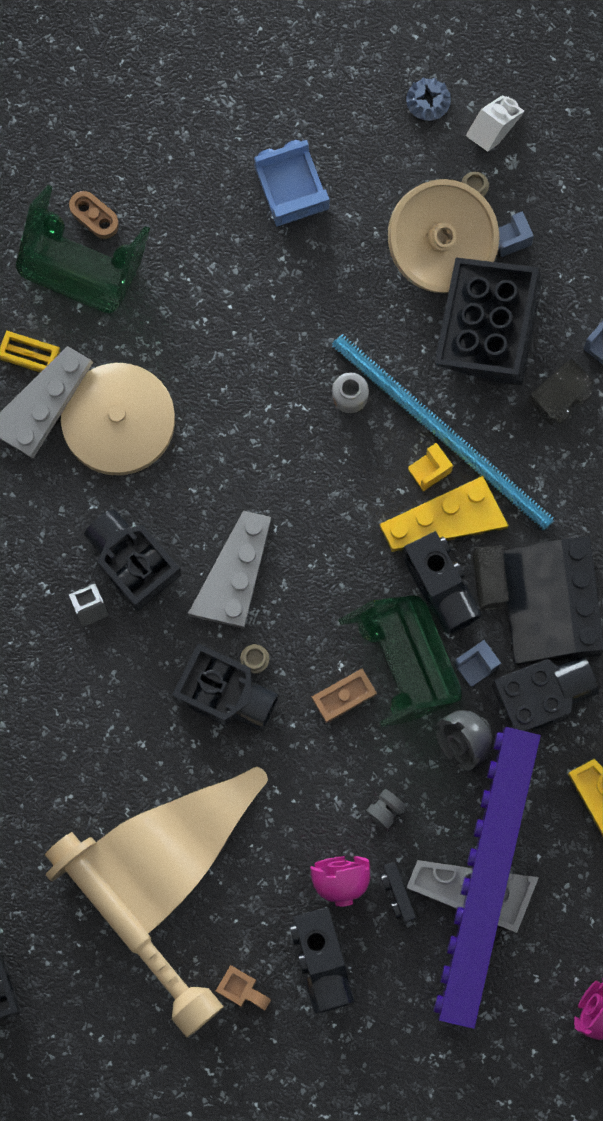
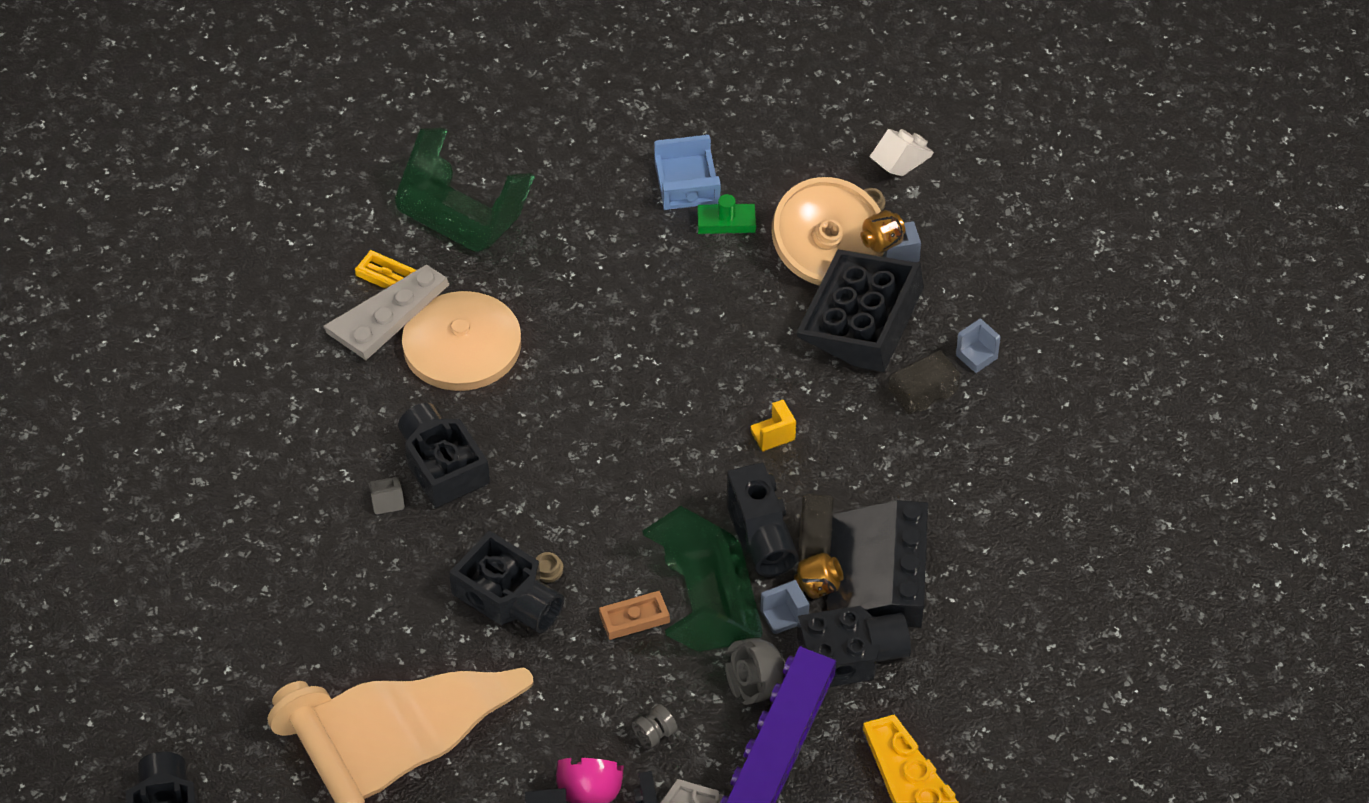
camera: 10 degrees right, 25 degrees down
(95, 215) = (484, 170): medium nougat plate -> none
(232, 580) = (541, 497): light grey wing -> none
(339, 229) = (726, 217): none -> green tile
(350, 392) = (704, 347): light grey head -> none
(421, 108) = (830, 133): sand blue gear -> none
(442, 432) = (795, 402): medium azure axle -> none
(452, 515) = (795, 472): yellow wing -> none
(496, 232) = (882, 231): none -> pearl gold head
(502, 625) = (819, 575): none -> pearl gold head

